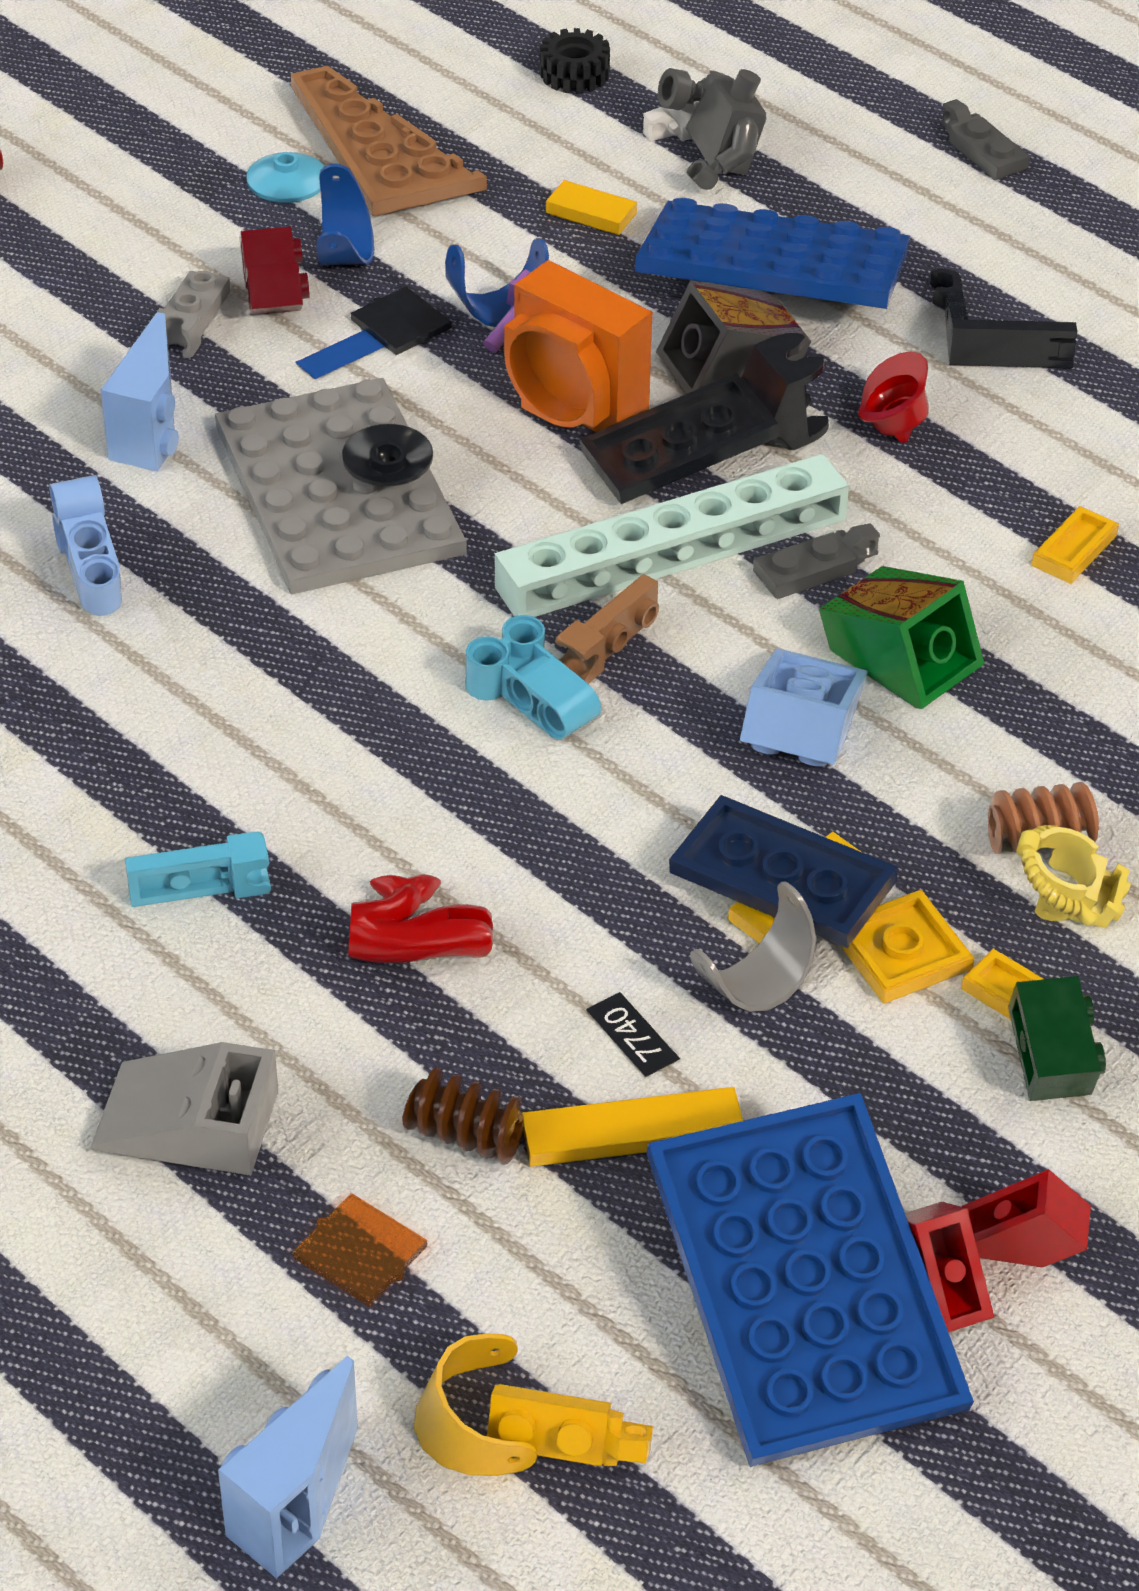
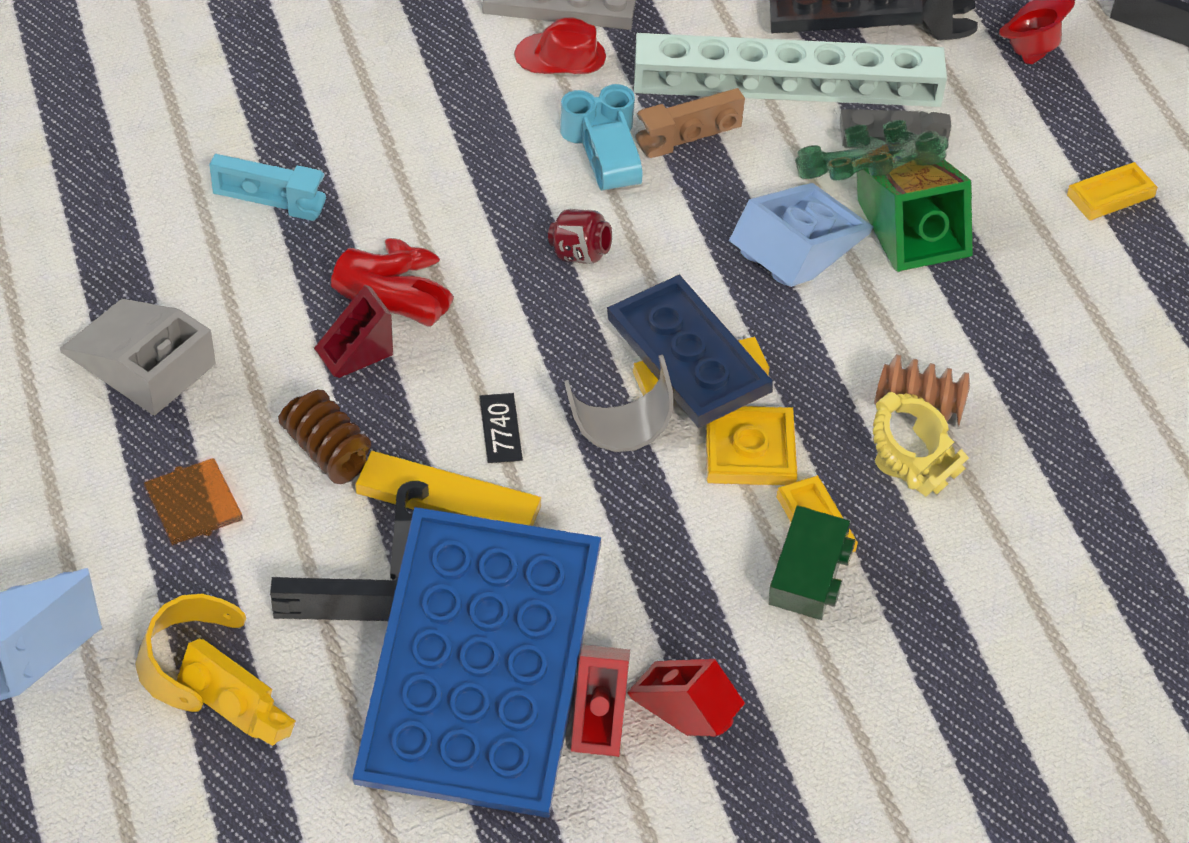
camera: 25 degrees right, 5 degrees up
(414, 600) = (563, 47): none -> red piece
(422, 994) = (358, 336): none -> dark red slope
(581, 796) = (580, 236): none -> dark red head
(623, 1272) = (348, 597): none -> black hinge
(884, 568) = (875, 154): none -> clear green plant

